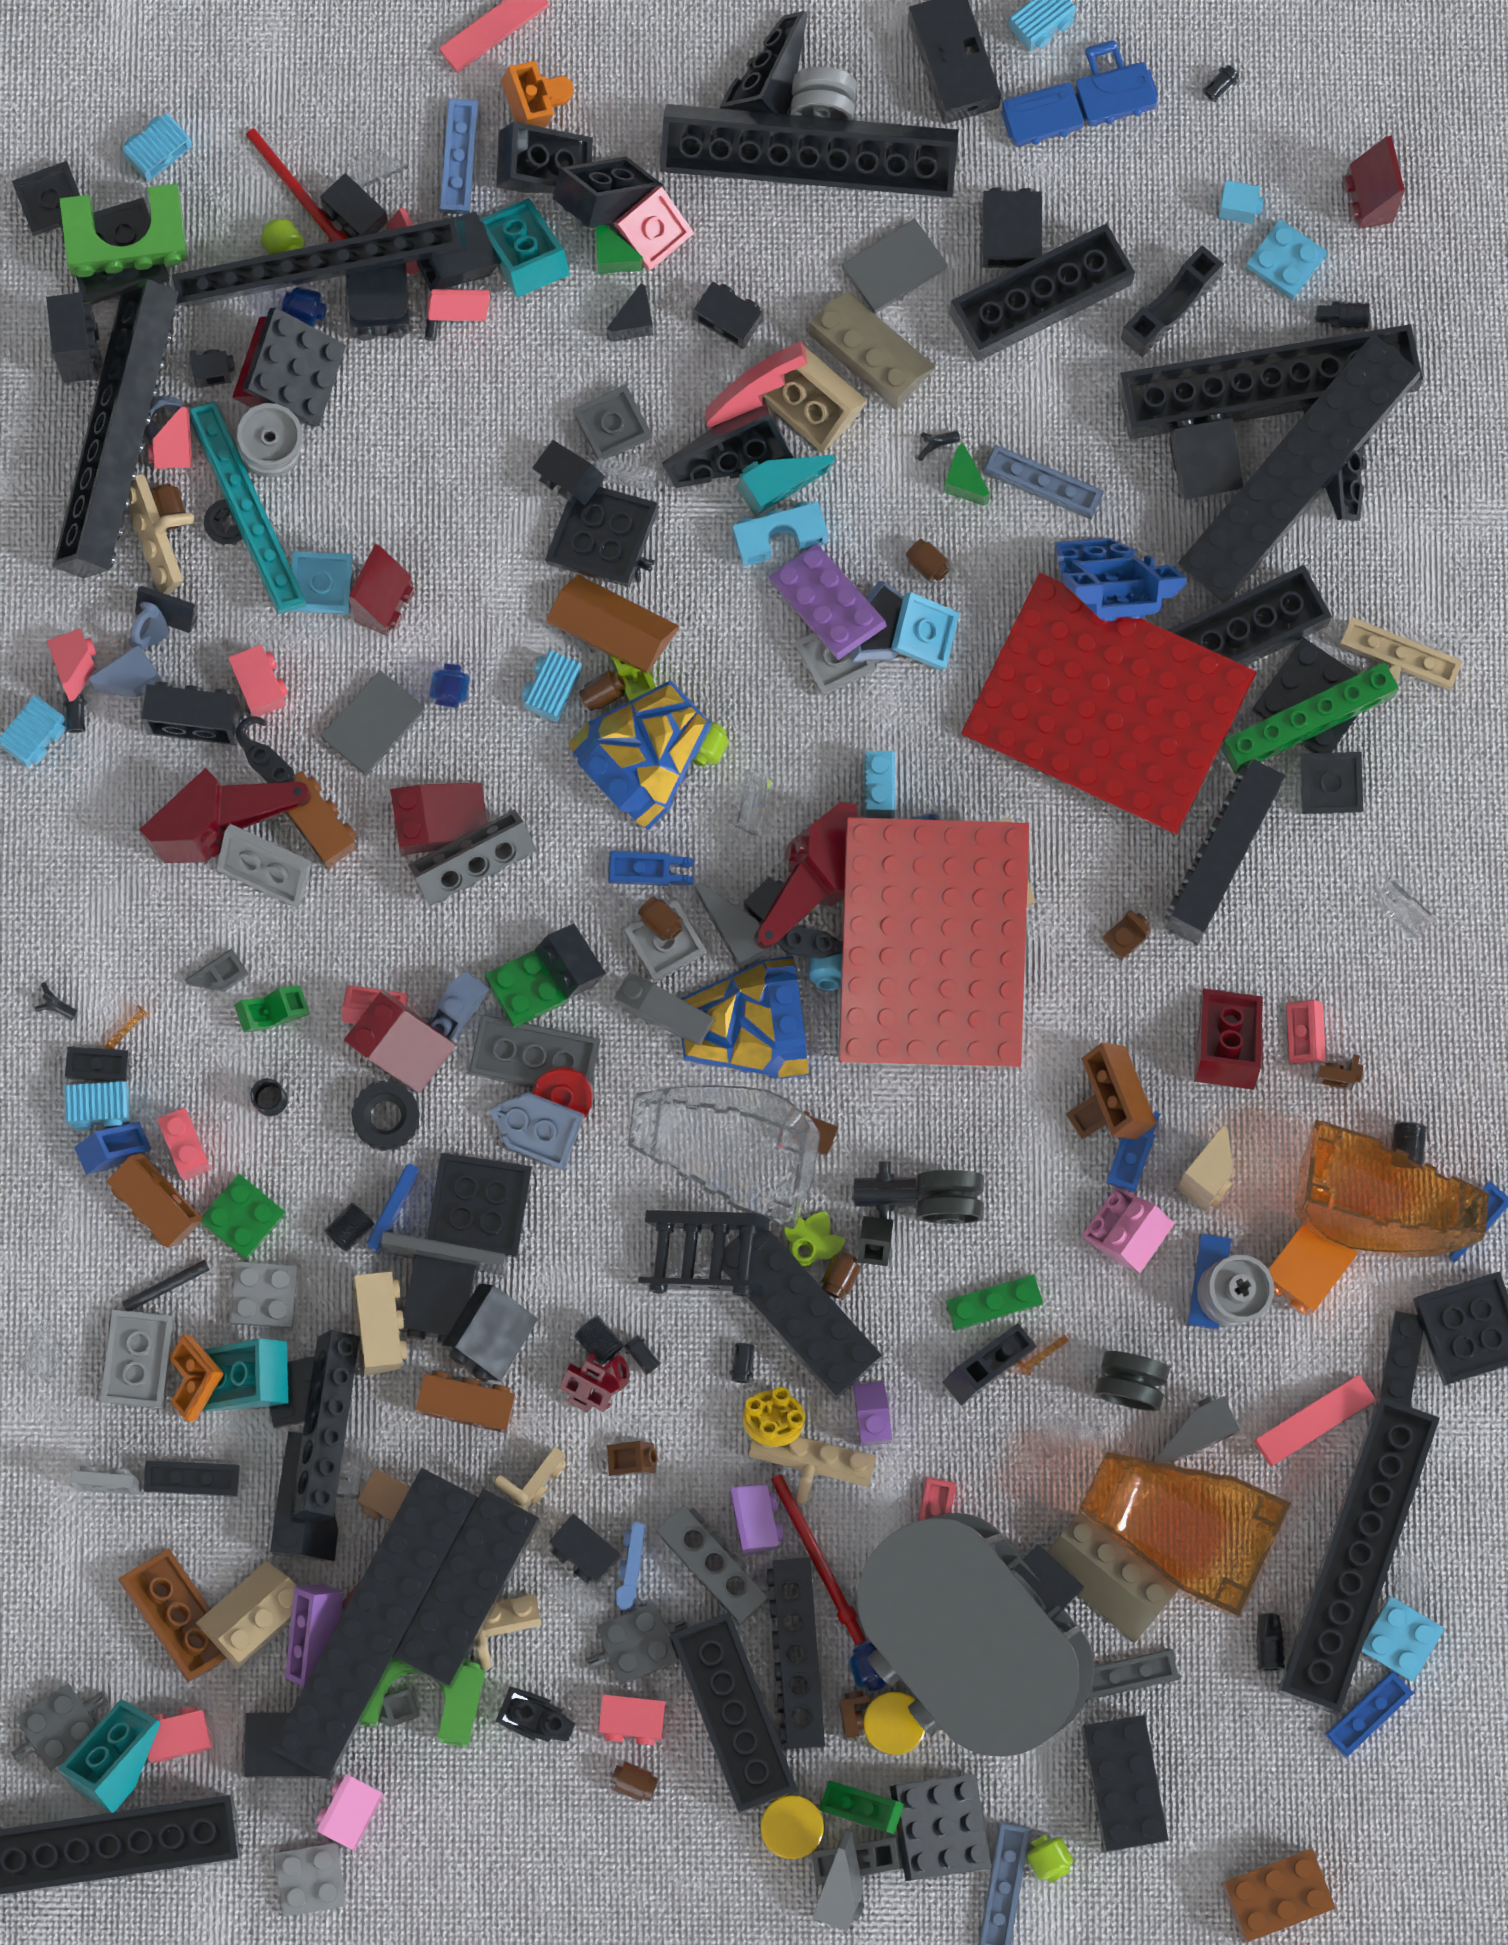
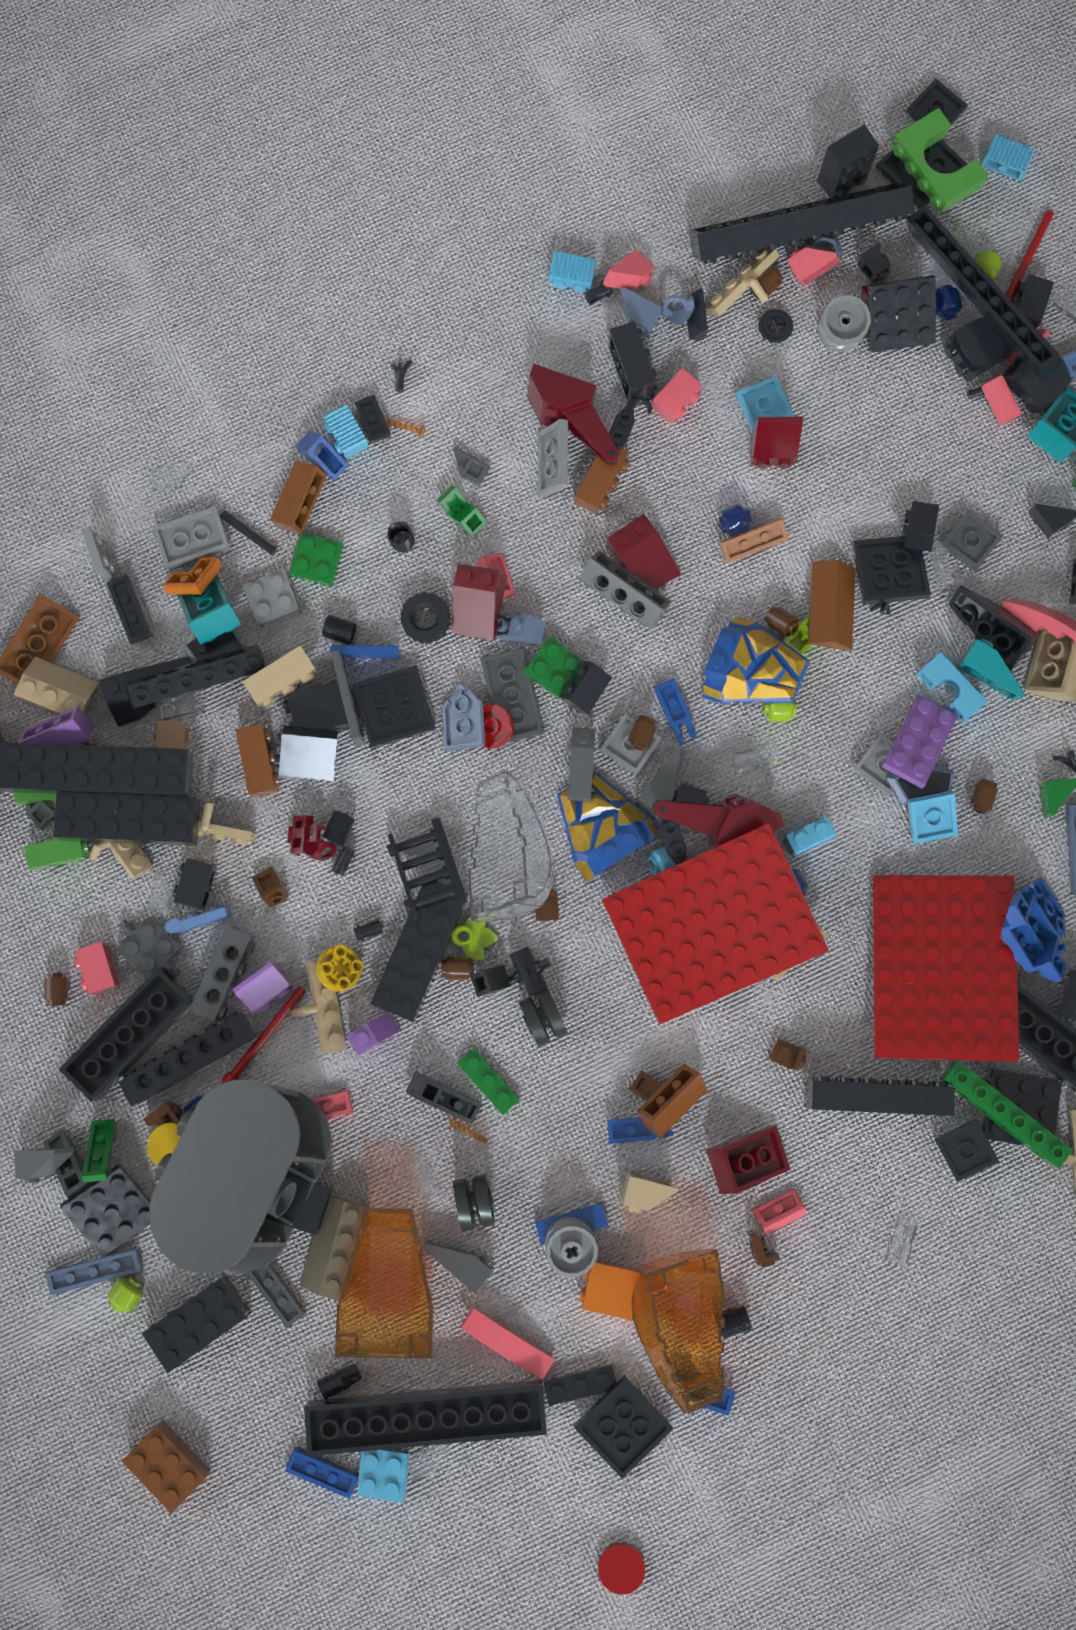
camera: 70 degrees right, 5 degrees up
(184, 1144) = (344, 498): coral brick -> none
(246, 508) = (789, 332): teal tile -> none
(372, 722) = (686, 484): dark grey tile -> none
(485, 676) = (753, 540): none -> nougat plate
(533, 1716) = (71, 903): black connector -> none
(551, 686) = (769, 586): medium azure brick -> none
(792, 1827) = (70, 1109): yellow tile -> none
(1128, 1229) = (580, 1150): bright pink slope -> none

